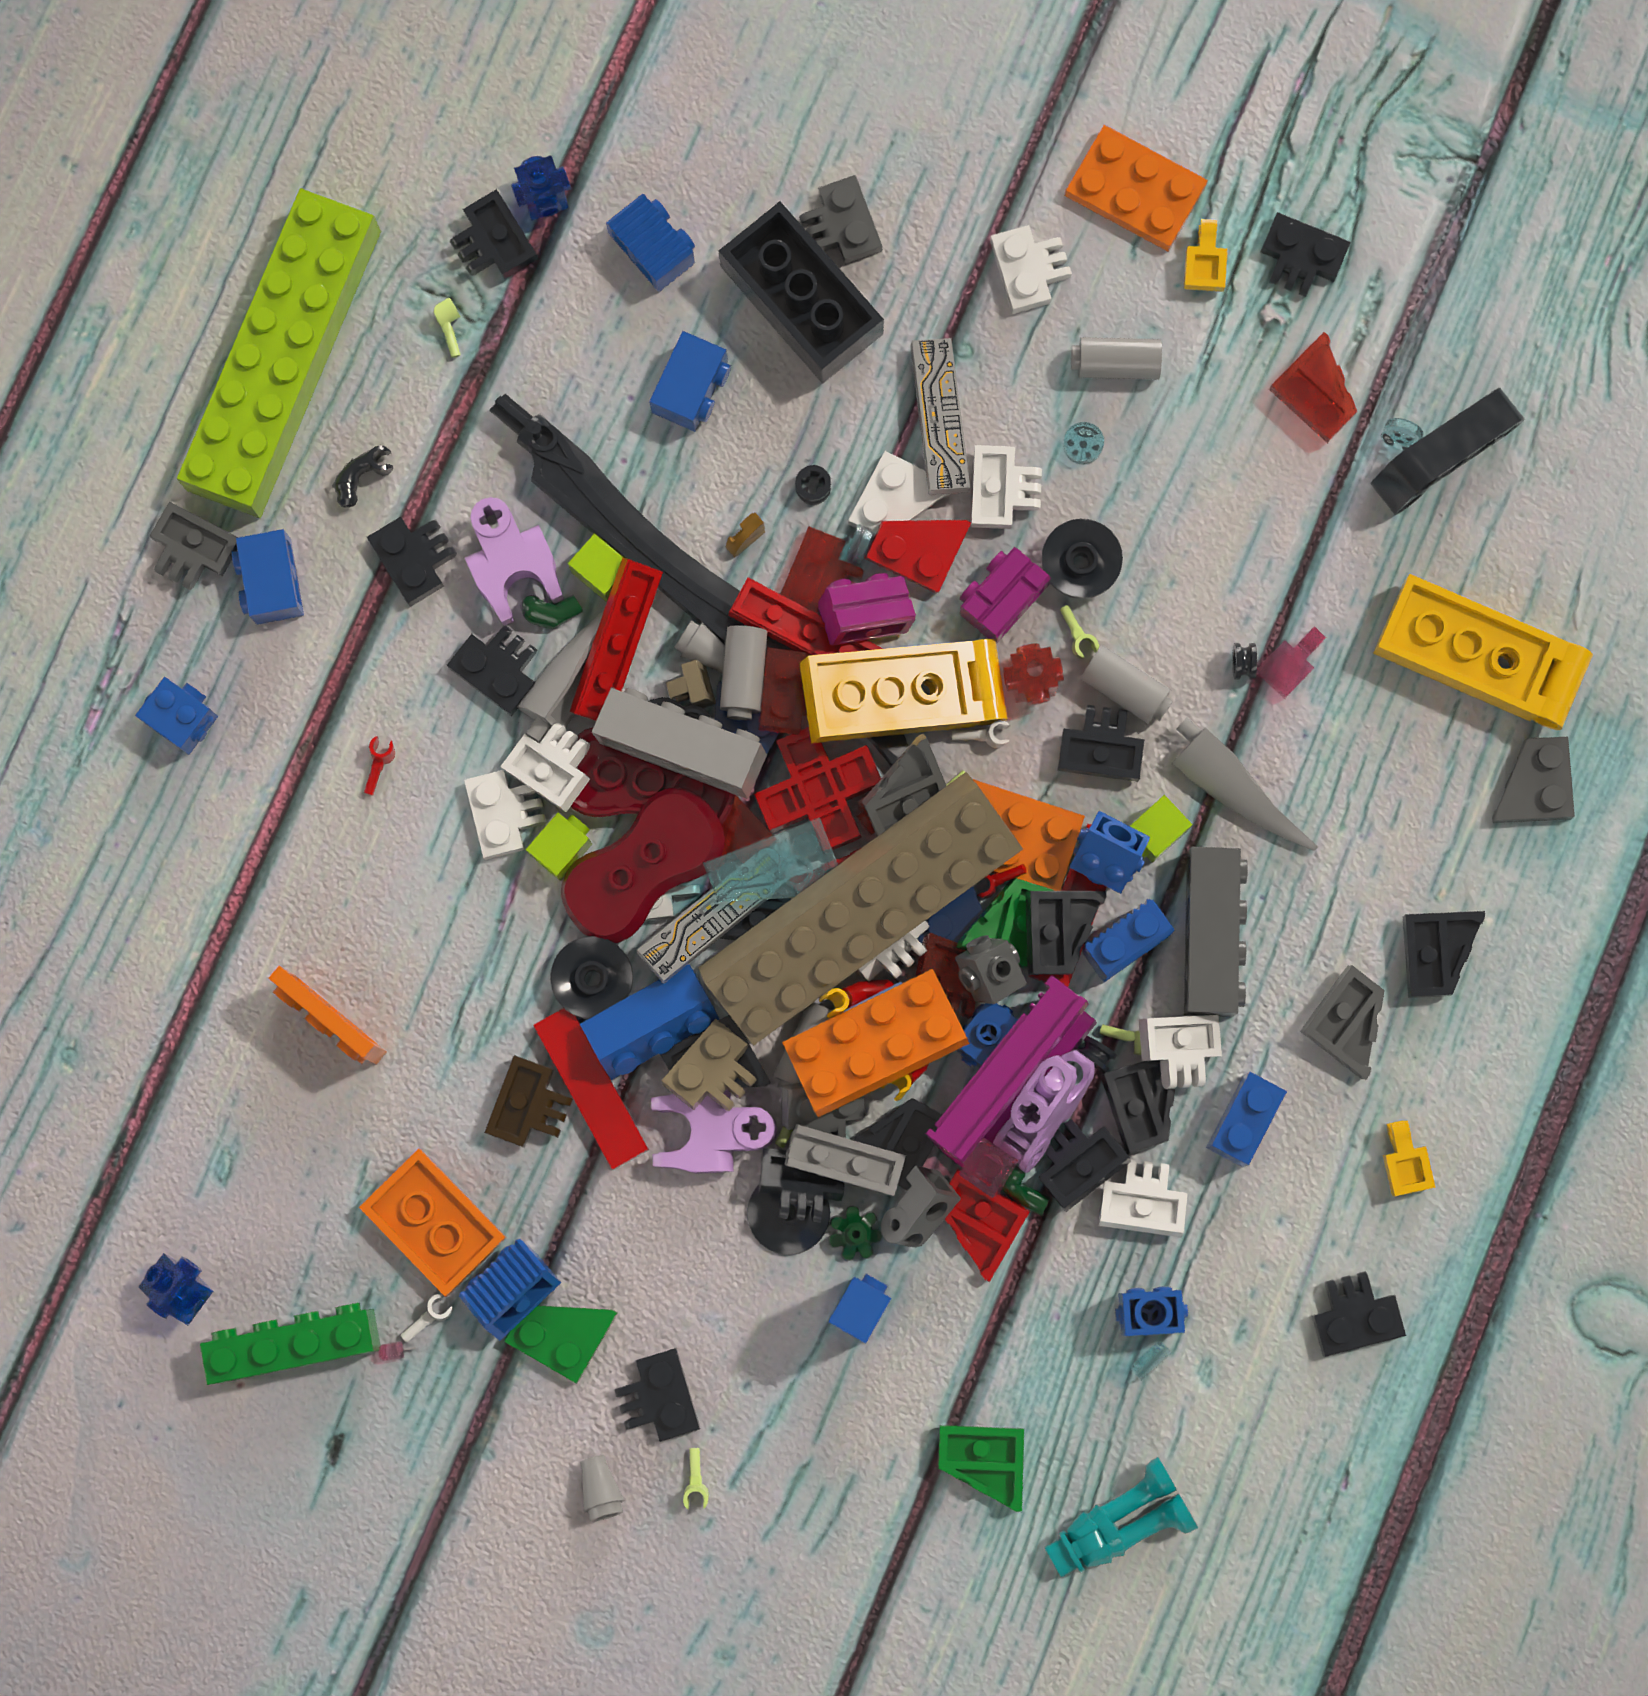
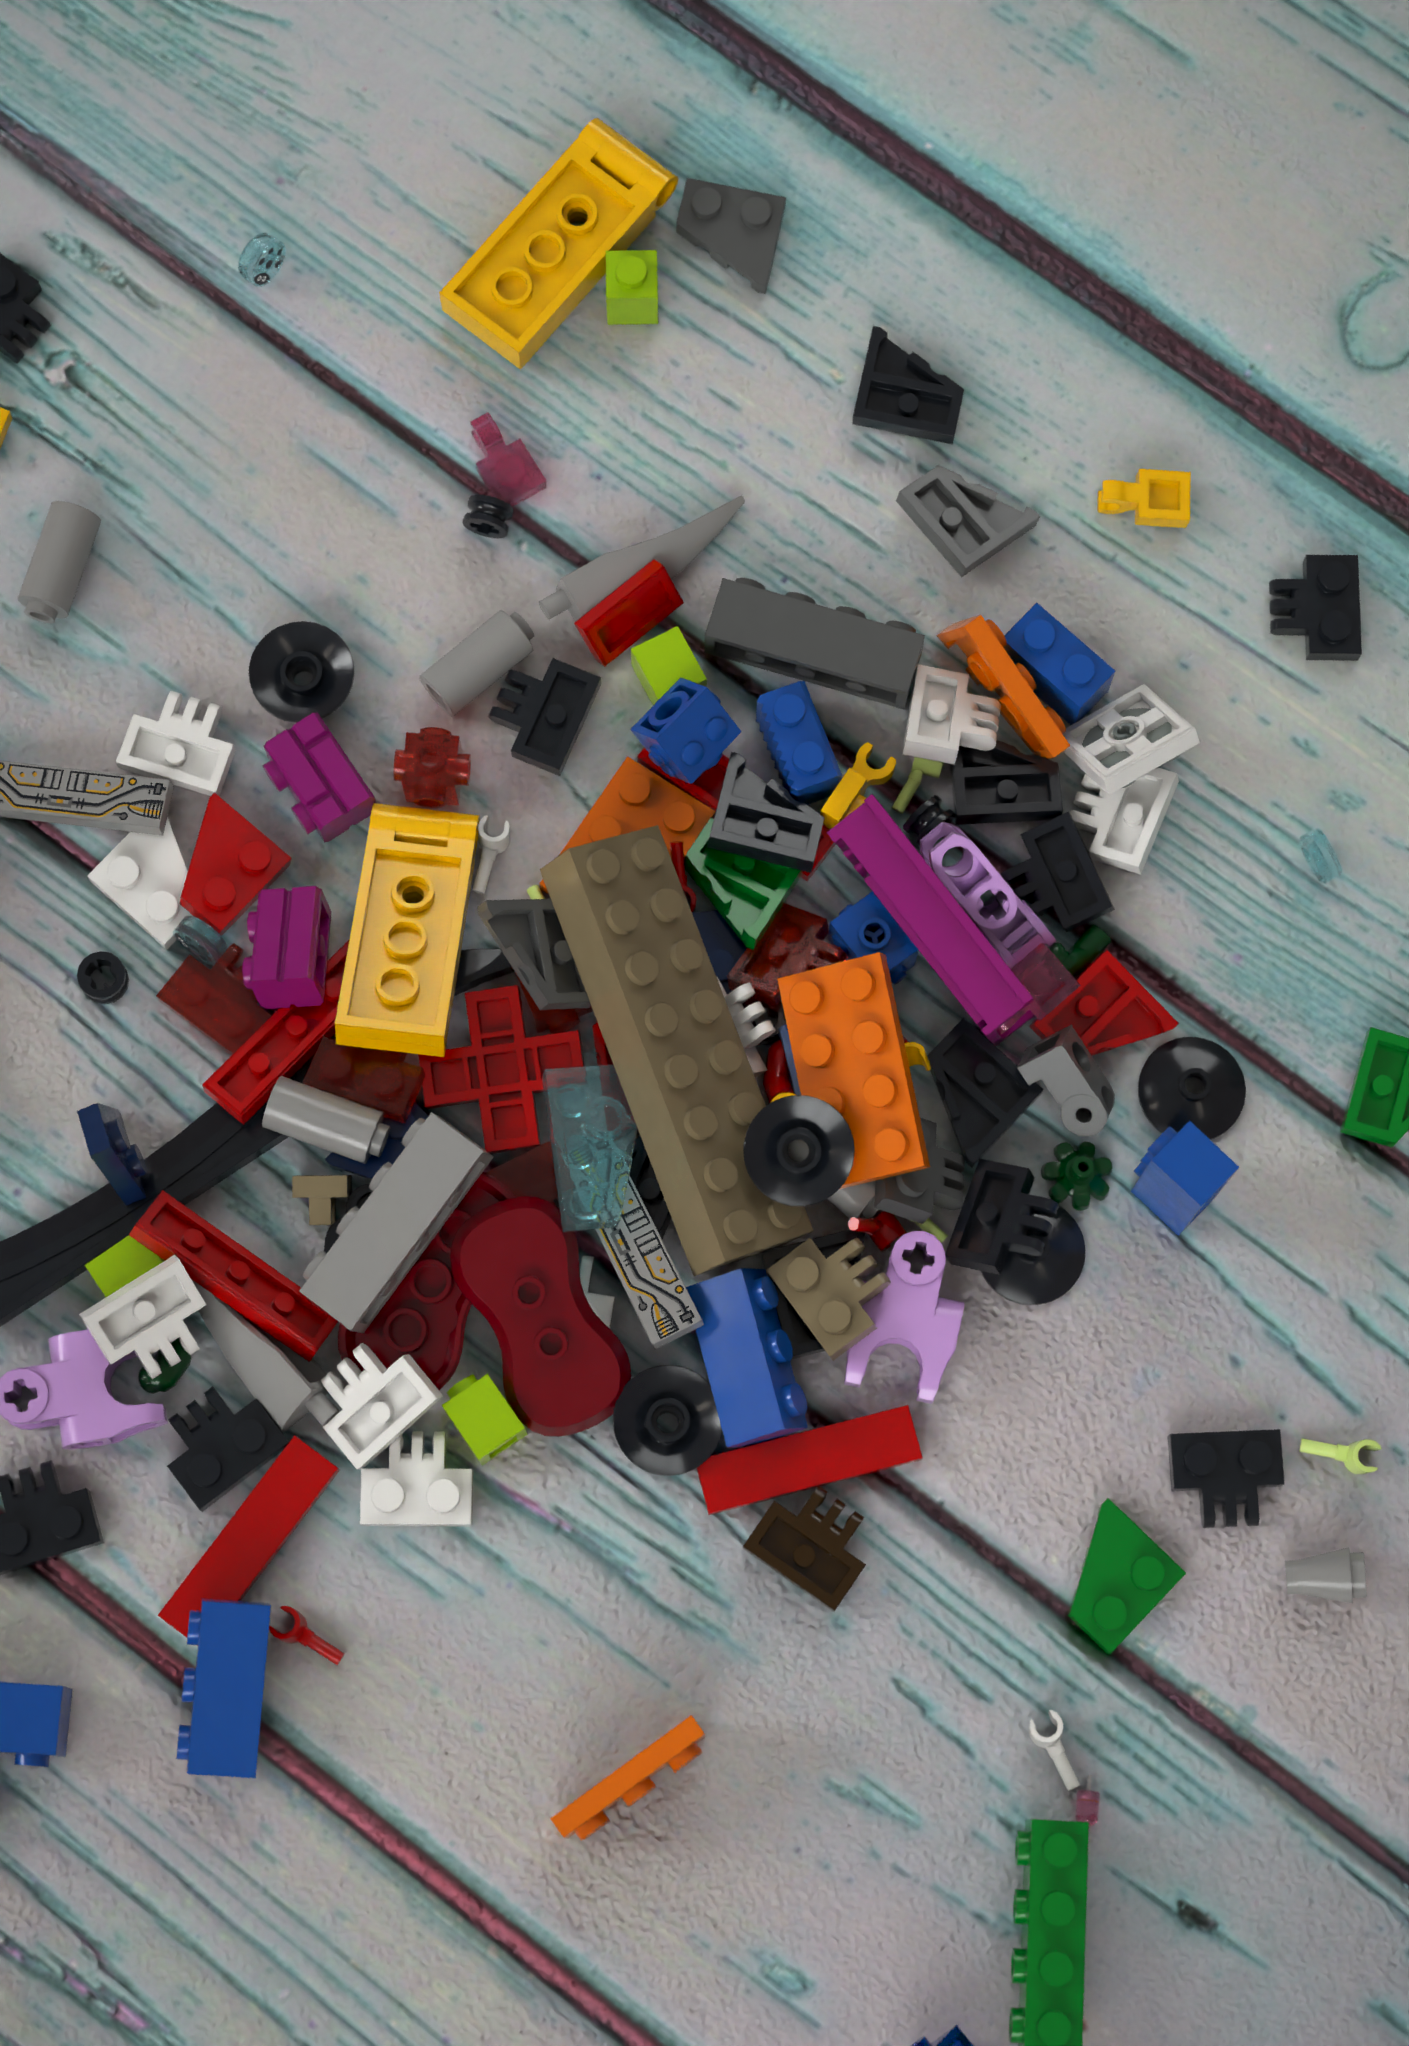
camera: 80 degrees left, 5 degrees down
(177, 714) = (159, 1891): blue head -> none
(324, 718) = (225, 1688): none -> blue brick
(432, 1222) = (934, 1709): orange plate -> none
(433, 706) = (254, 1532): none -> red tile
(509, 1289) = (1046, 1627): blue brick -> none
(566, 587) = (147, 1316): none -> white hinge
(681, 526) = (112, 1151): none -> dark blue wing
(701, 645) = (270, 1171): light grey cone -> none
(752, 529) = (142, 1078): pearl gold tile -> none
(772, 1097) = (881, 1229): none -> red hand
(782, 1011) = (828, 1157): none -> black dish
(844, 1160) = (987, 1155): light grey hinge -> none
(921, 1311) = (1168, 1101): none -> black dish
(990, 969) = (797, 909): dark grey brick -> none
(1077, 633) = (396, 704): yellowish green hand -> none
(1083, 443) = (152, 634): clear light blue tile -> none
(1097, 988) = (852, 787): none -> yellow plate
(1168, 1307) = (1264, 836): blue head -> none
(1197, 786) = (629, 612): none -> red tile
(1200, 1188) = (1128, 739): none -> white piece
(1218, 1090) = (994, 669): none -> orange wing
(1316, 390) = (174, 342): clear red wing -> none
(1446, 450) = (299, 214): black beam -> none
(1461, 718) = (631, 287): none -> lime brick

